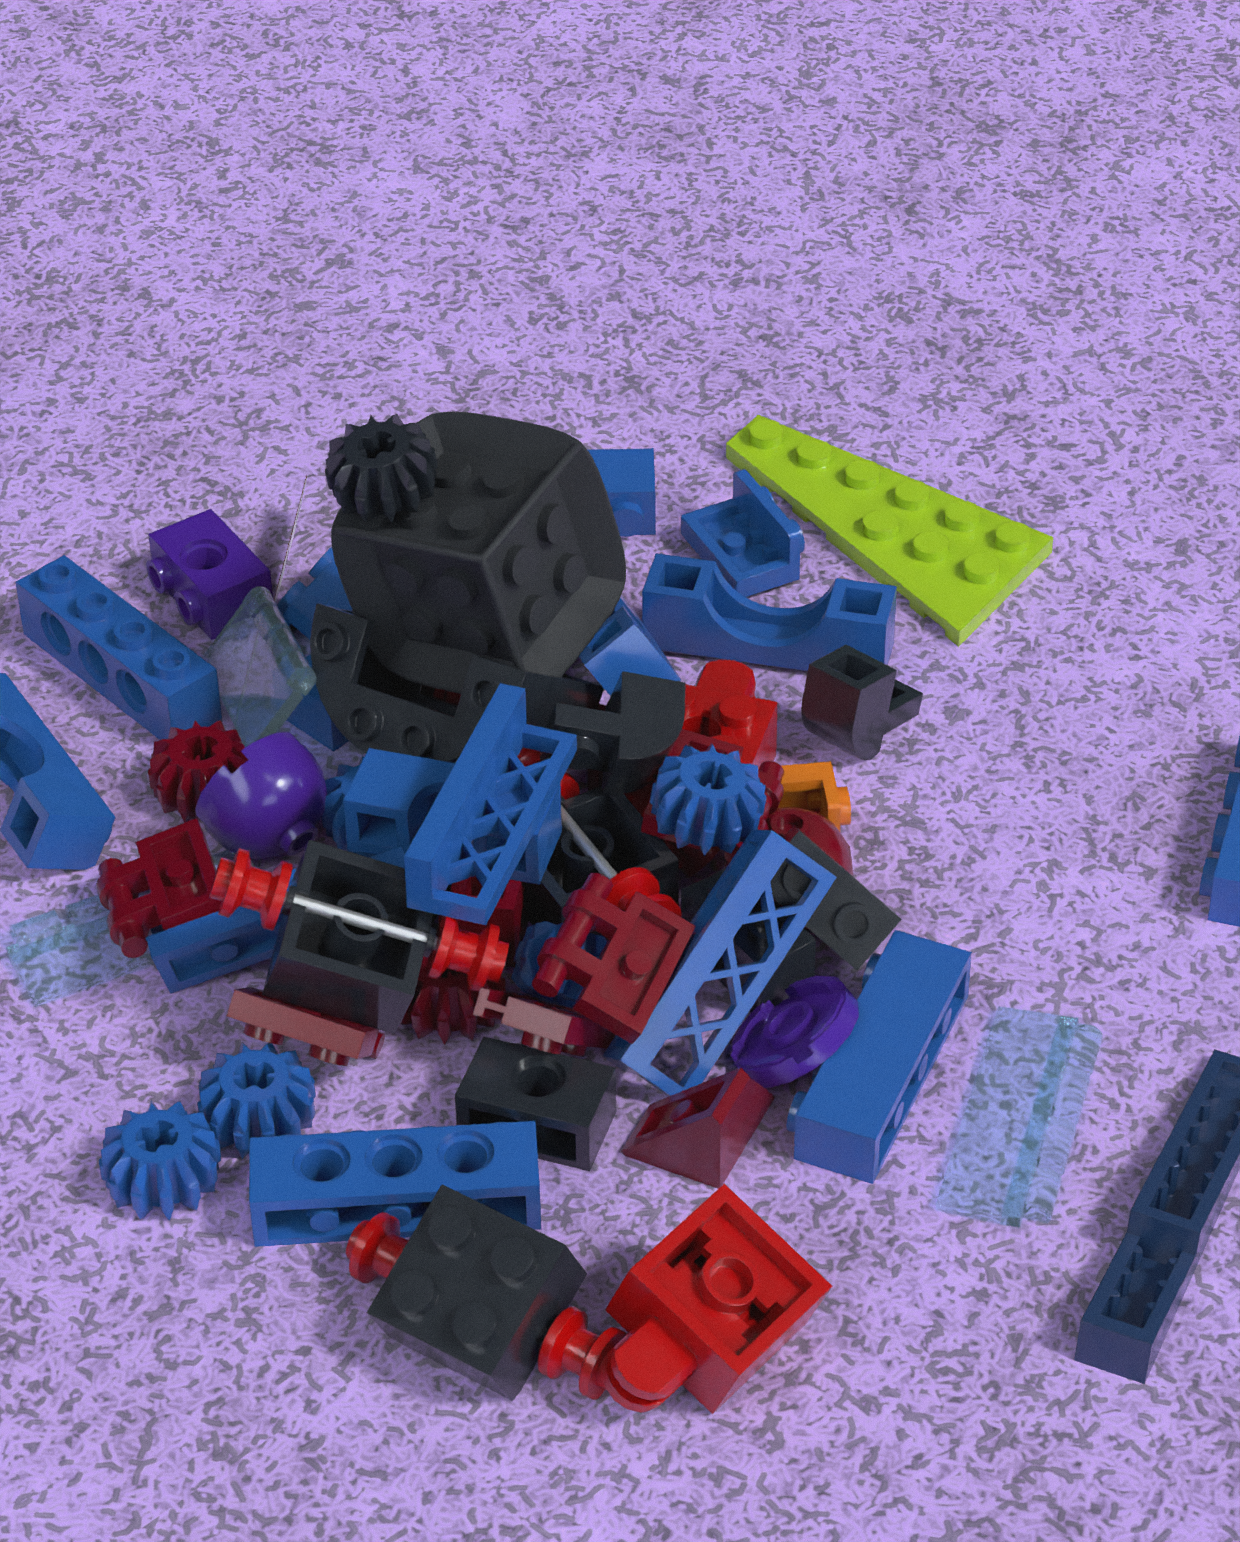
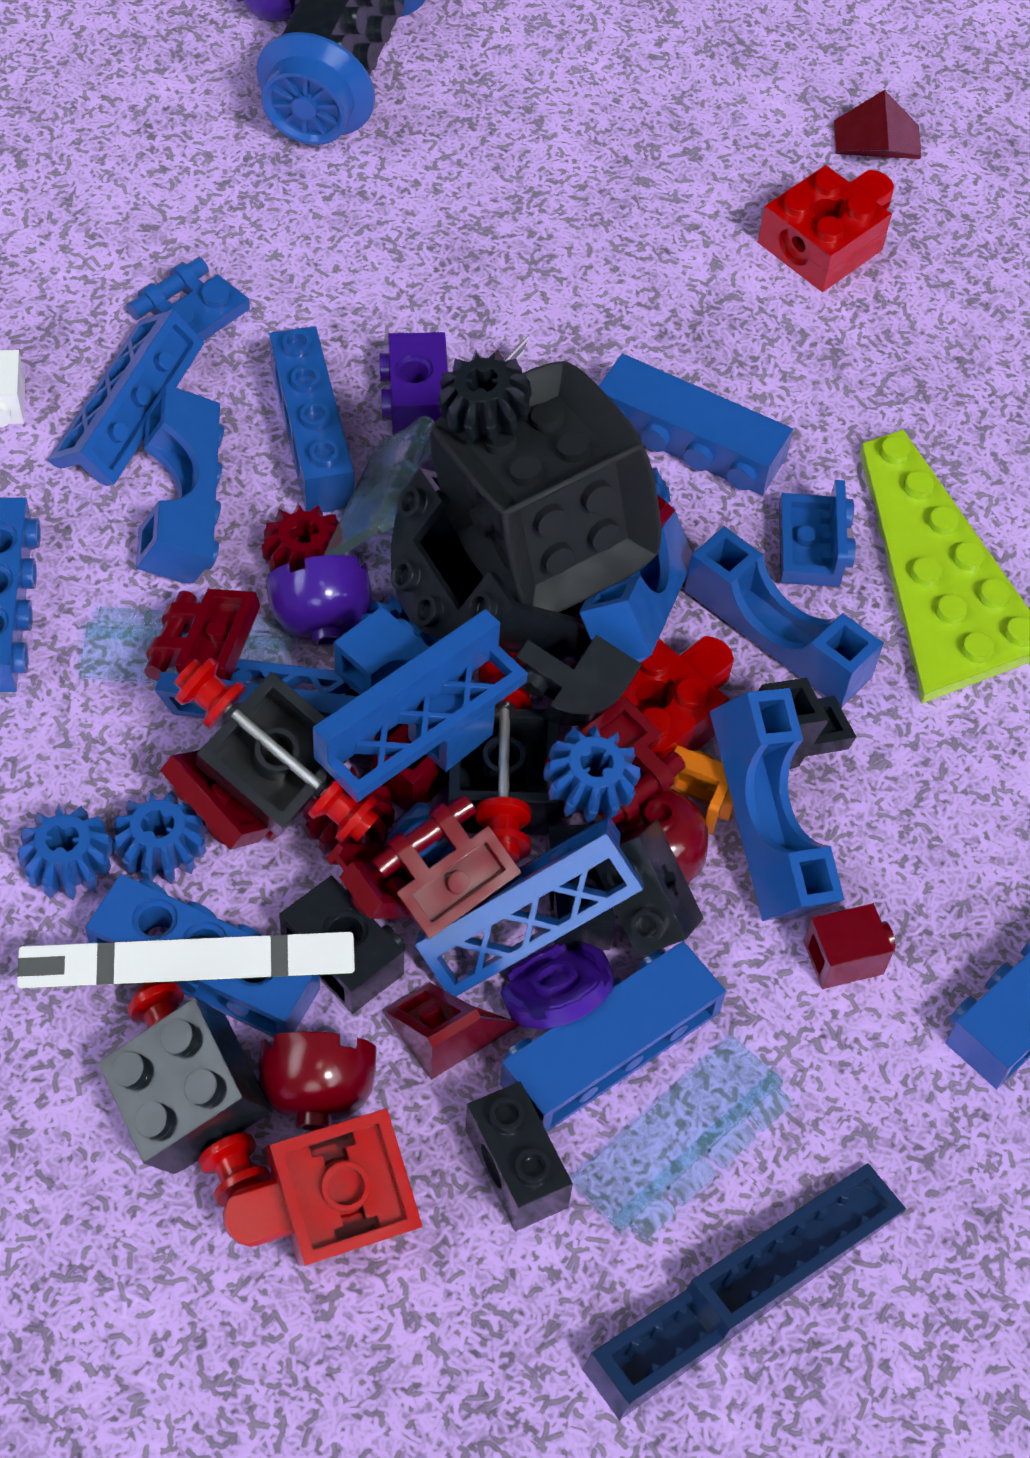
camera: 25 degrees right, 15 degrees up
(383, 1182) = (185, 960): none -> white sticker
(522, 165) = (878, 130): none -> dark red slope
(541, 264) = (828, 224): none -> red brick
(609, 1211) = (316, 1077): none -> dark red cylinder
(843, 717) = (756, 746): none -> blue arch
(871, 1196) = (518, 1156): none -> black brick
(1054, 872) = (849, 945): none -> dark red brick

